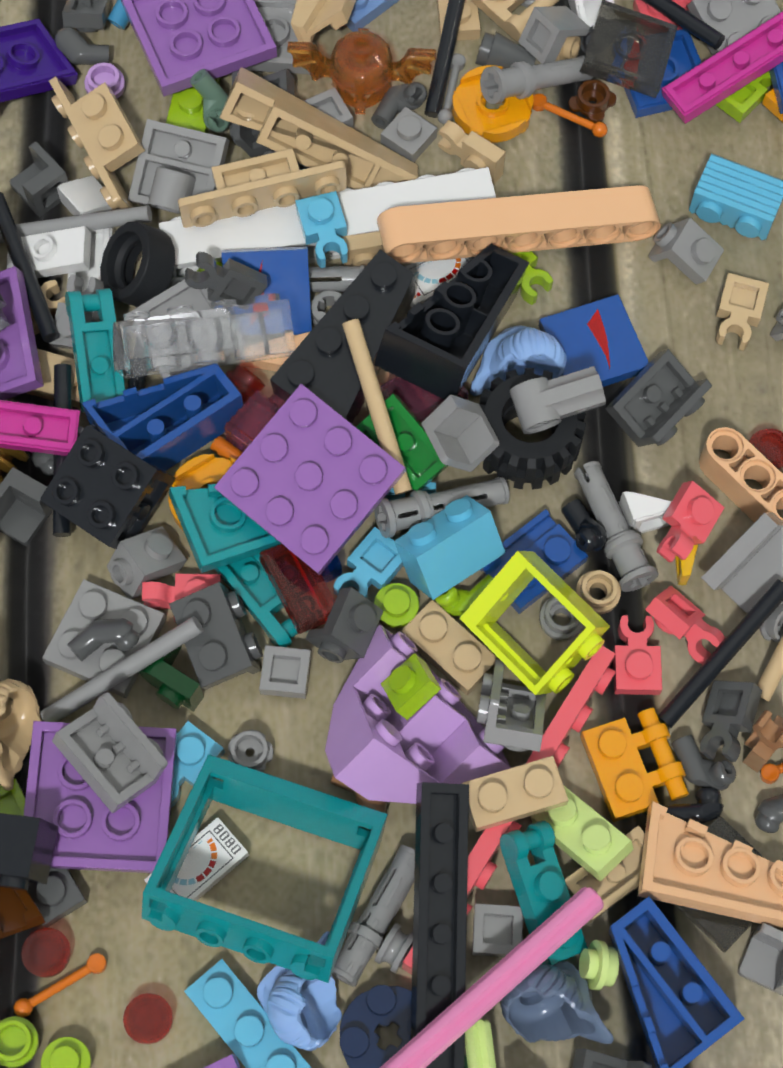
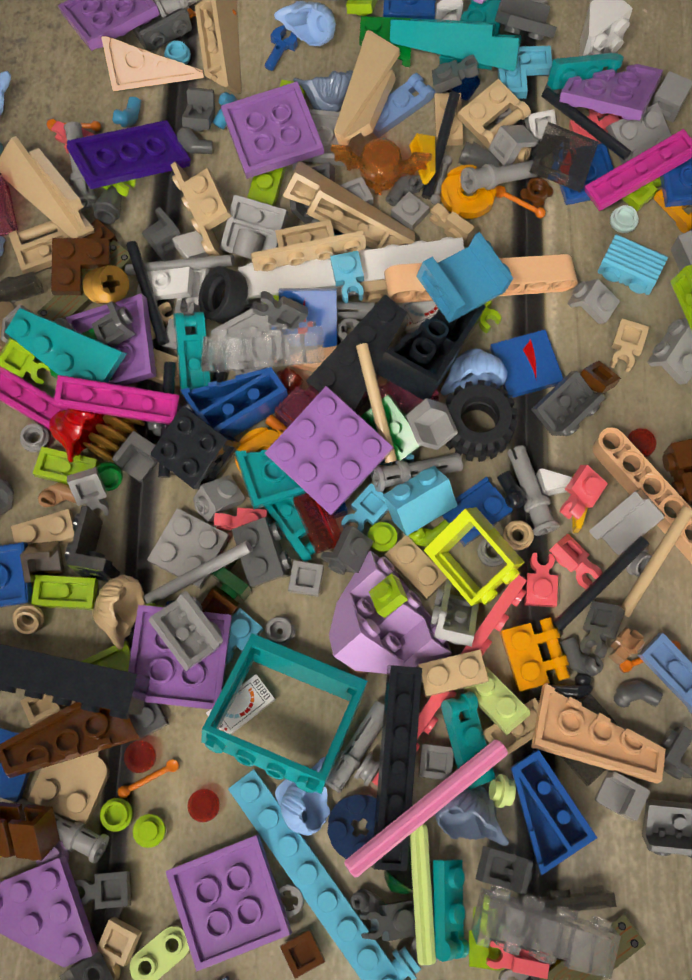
camera: 10 degrees right, 5 degrees up
(101, 632) = (188, 546): dark grey arm -> none
(105, 73) = (209, 161): lavender plate -> none
(156, 712) = (219, 602): none -> reddish brown plate
(213, 100) = (280, 182): sand green arm -> none
(426, 38) = (425, 144): none -> yellow piece
(496, 223) = (465, 278): none -> dark azure panel
(545, 402) = (491, 405): light grey piece -> none
(702, 358) = (599, 377): none -> reddish brown plate
(722, 133) = (624, 219): none -> light aqua plate

